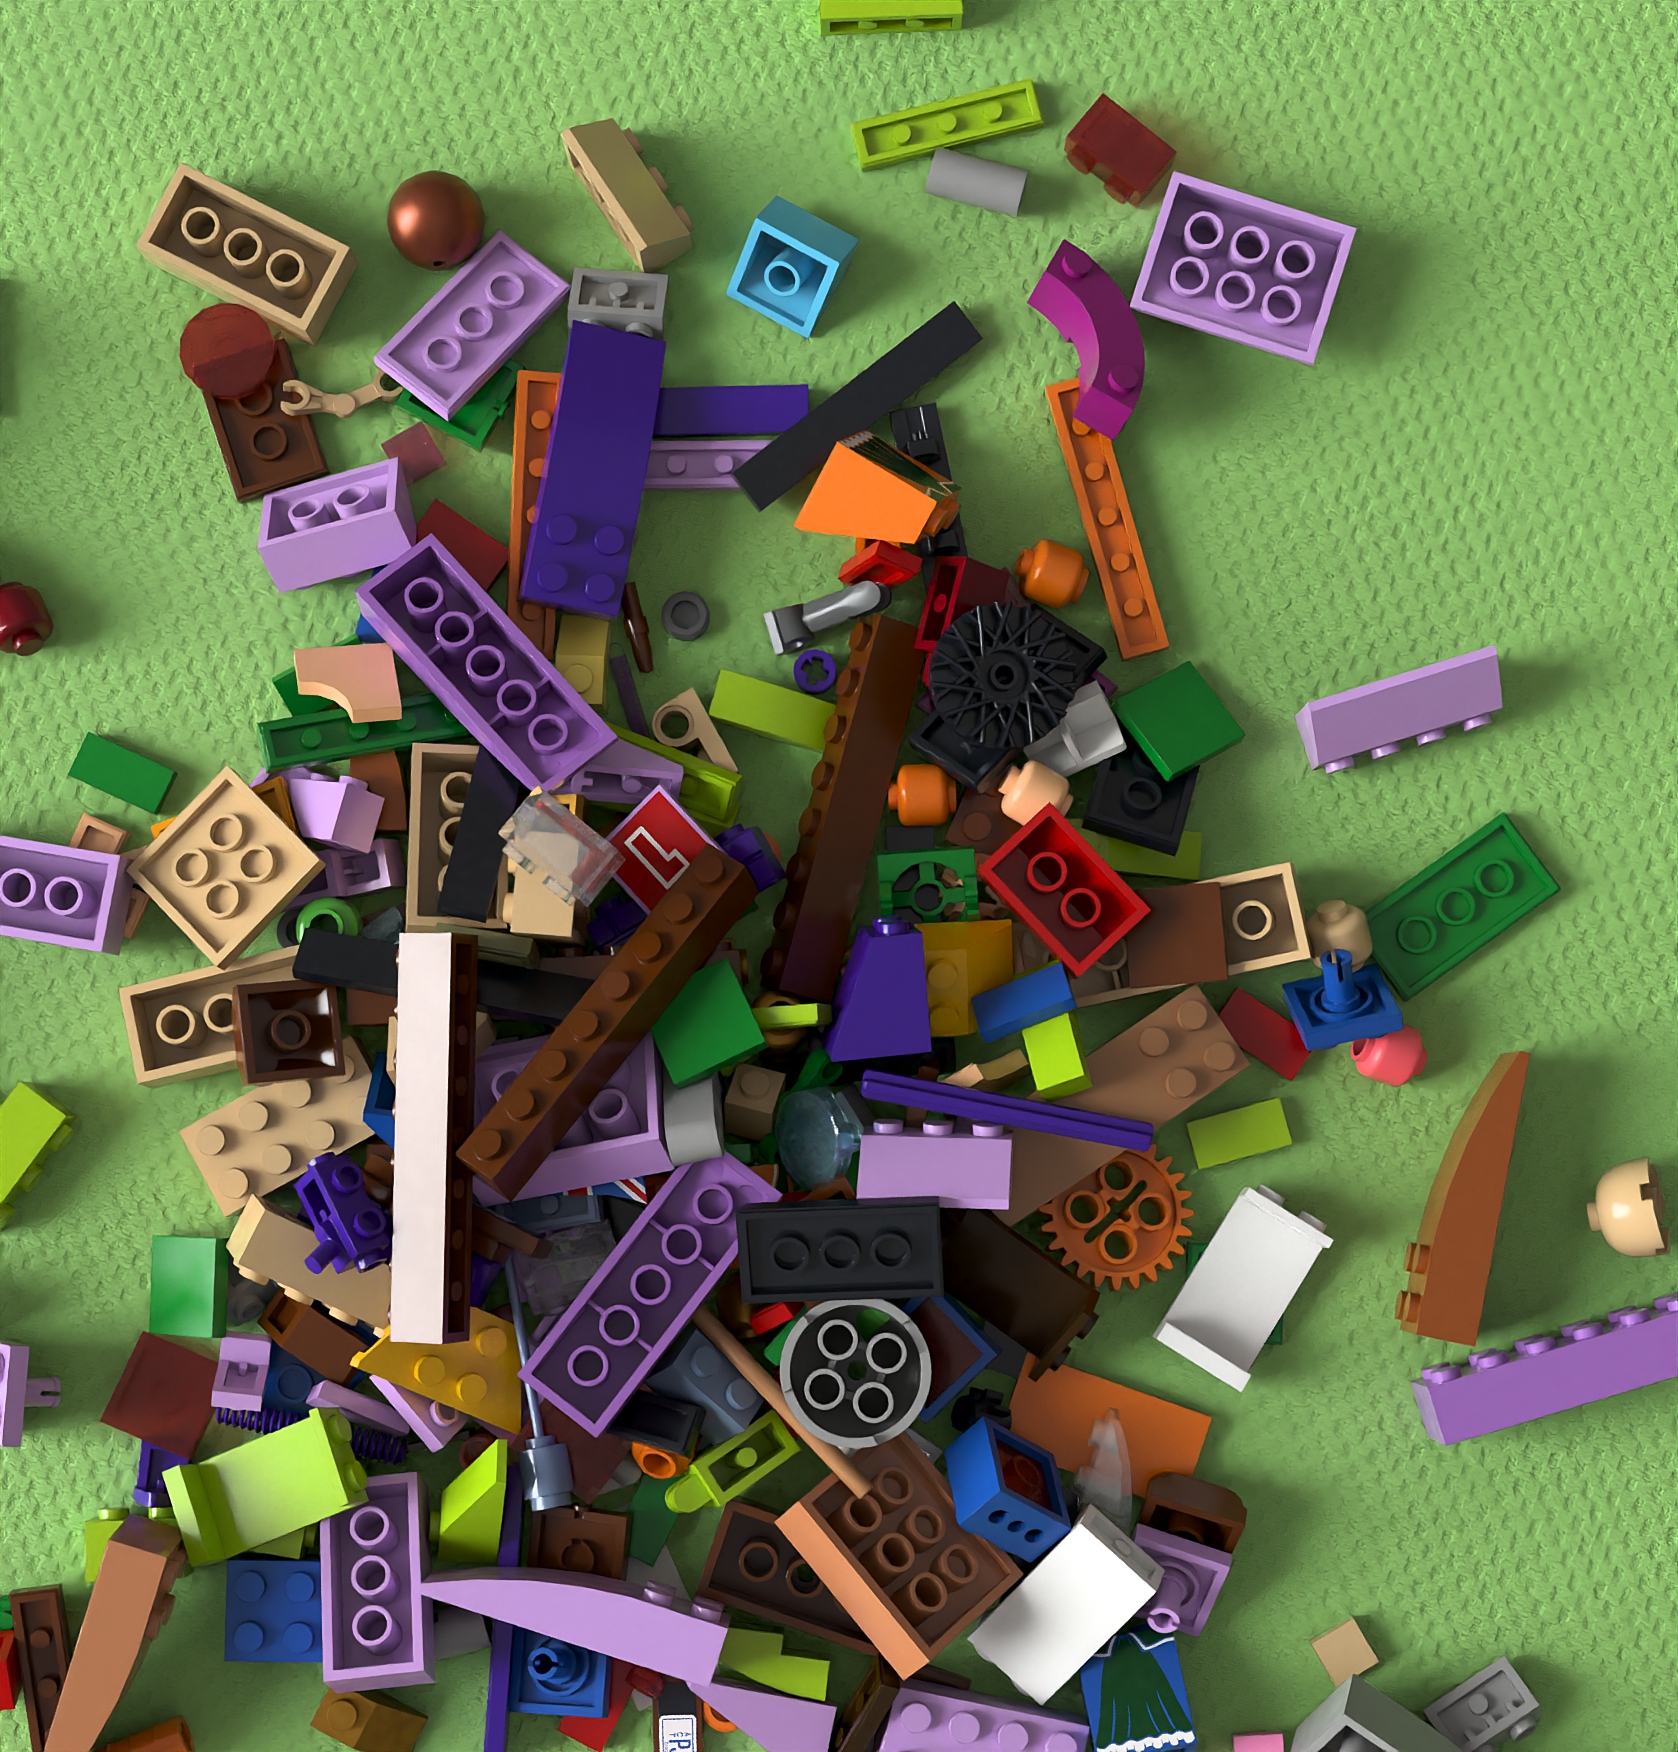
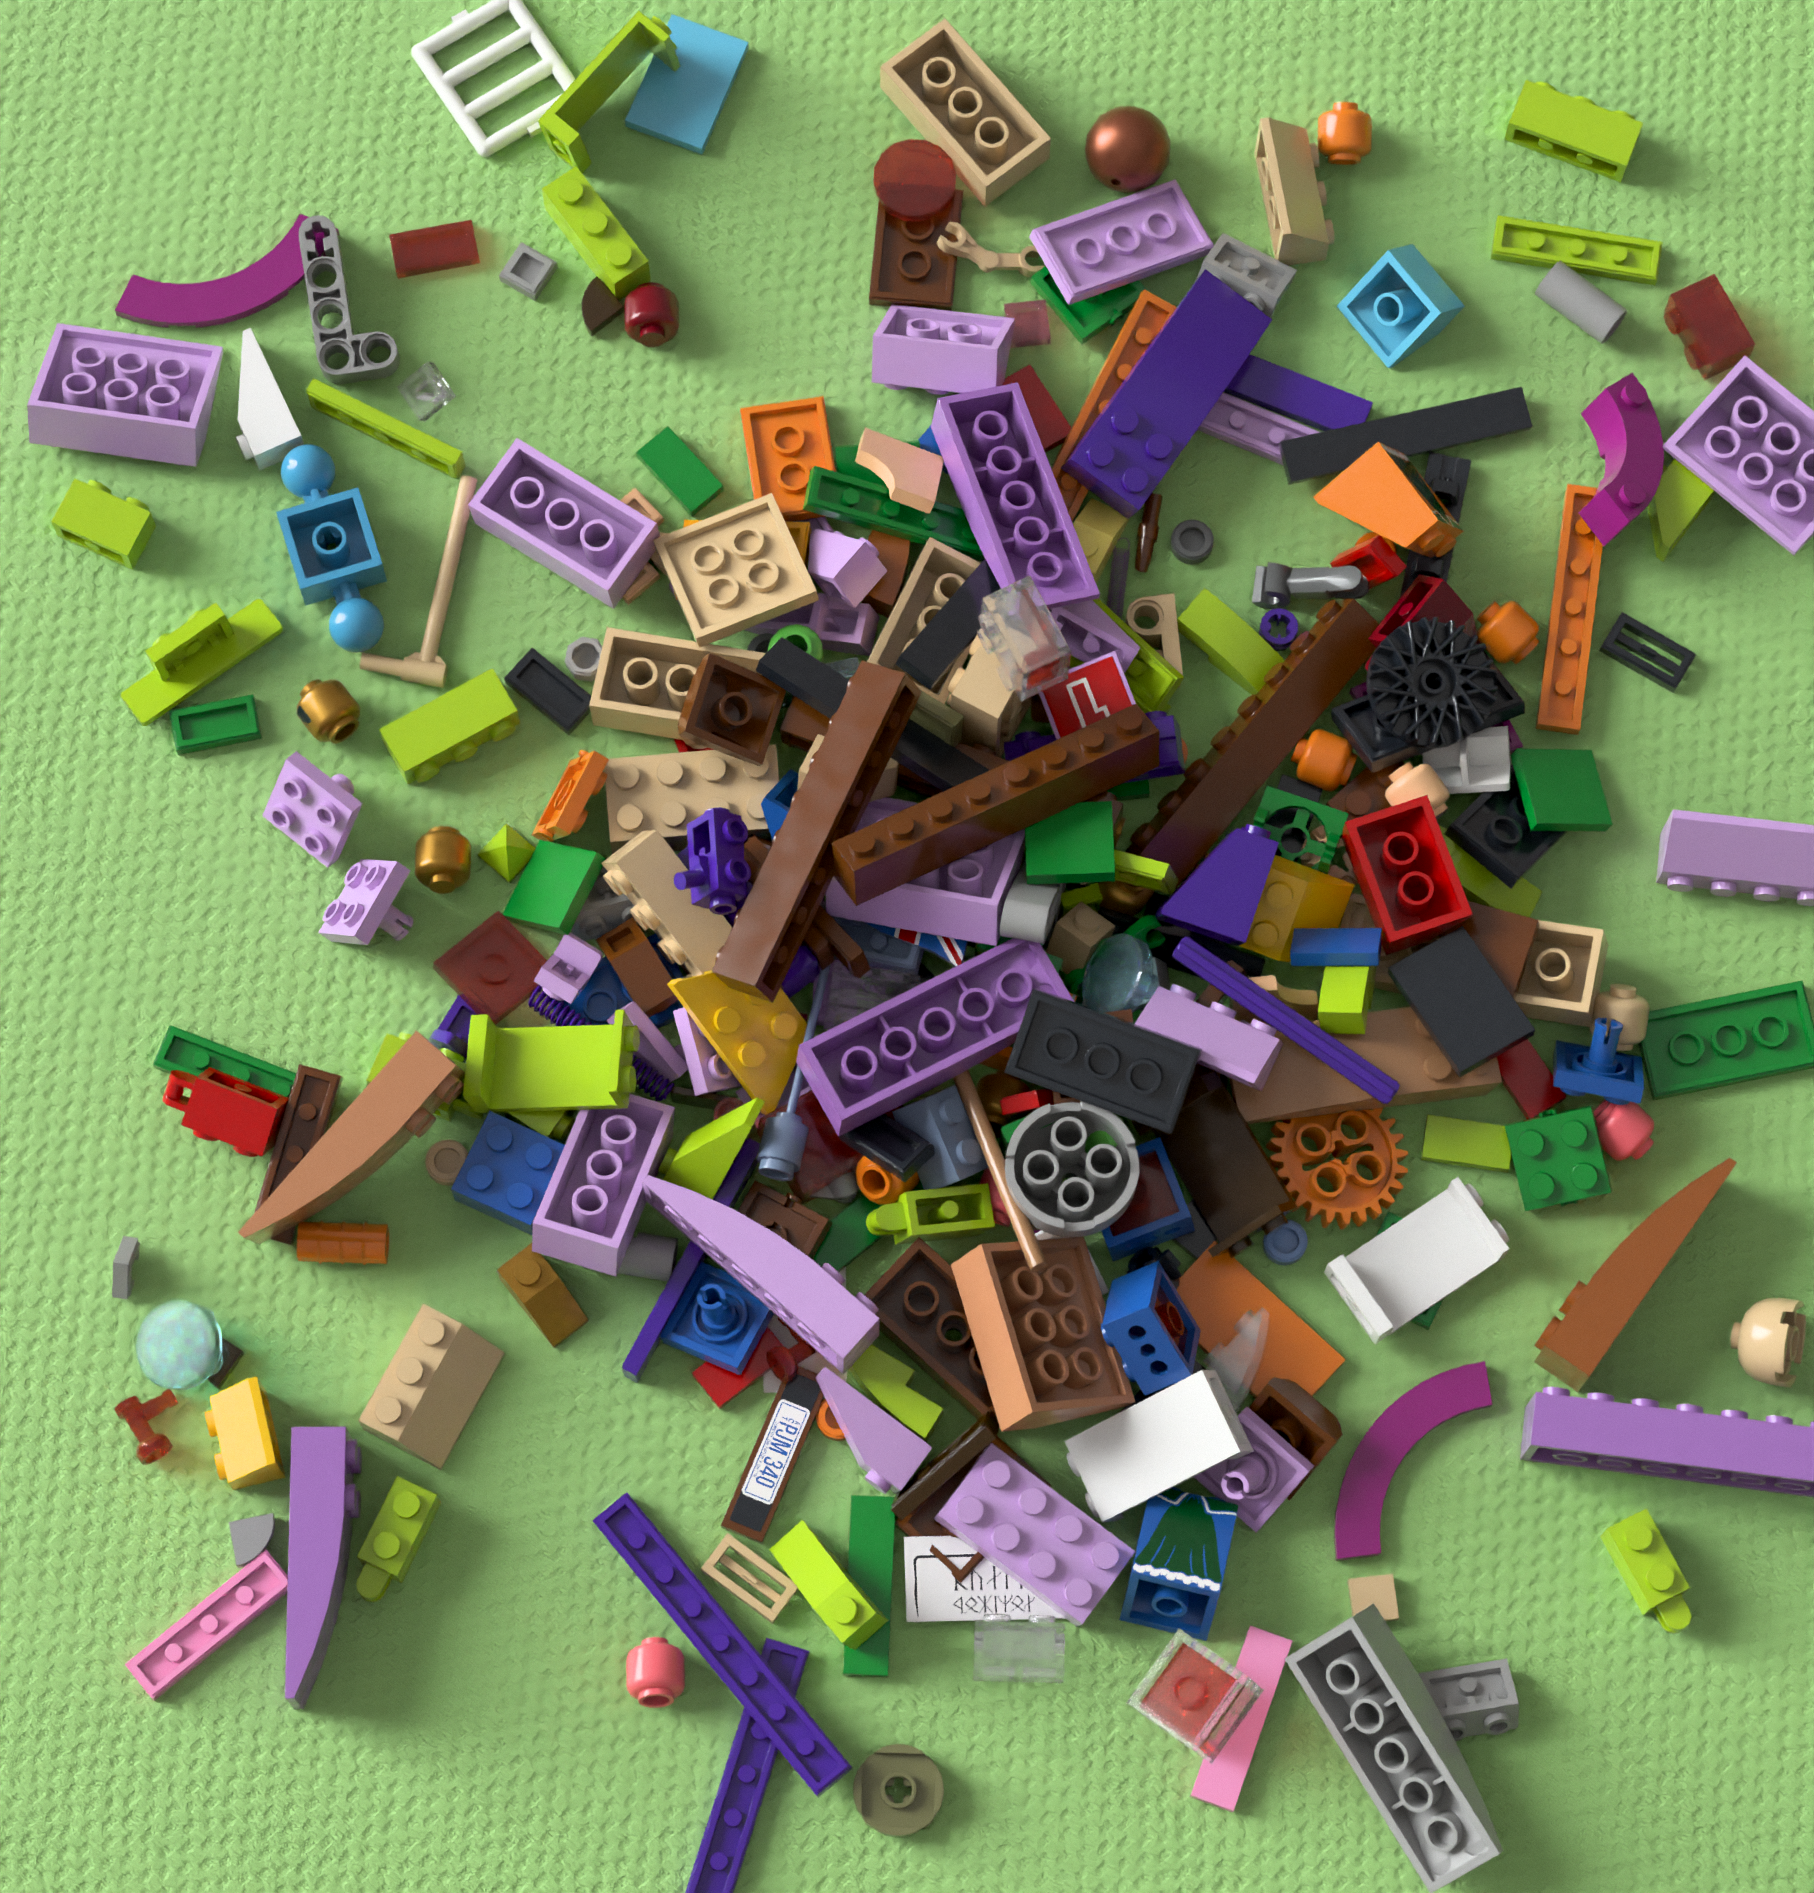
camera: 20 degrees right, 10 degrees down
(61, 1304) = (443, 859): none -> pearl gold head
(90, 1070) = (549, 691): none -> black tile
(109, 1022) = (583, 658): none -> light grey tile
(125, 1262) = (507, 853): none -> lime slope
(163, 1205) = (566, 806): none -> orange plate
(206, 1618) = (445, 1161): none -> tan tile
(221, 700) = (782, 449): none -> orange tile
(654, 104) = (1344, 134): none -> orange head
(1108, 1323) = (1286, 1244): none -> medium blue tile
(1168, 362) = (1676, 506): none -> lime slope
(1177, 1006) = (1461, 1001): none -> black tile
(1198, 547) = (1641, 666): none -> black tile
(1291, 1484) = (1388, 1443): none -> magenta tile
(1339, 1113) = (1558, 1158): none -> green plate
(1608, 1501) = (1649, 1570): none -> lime brick

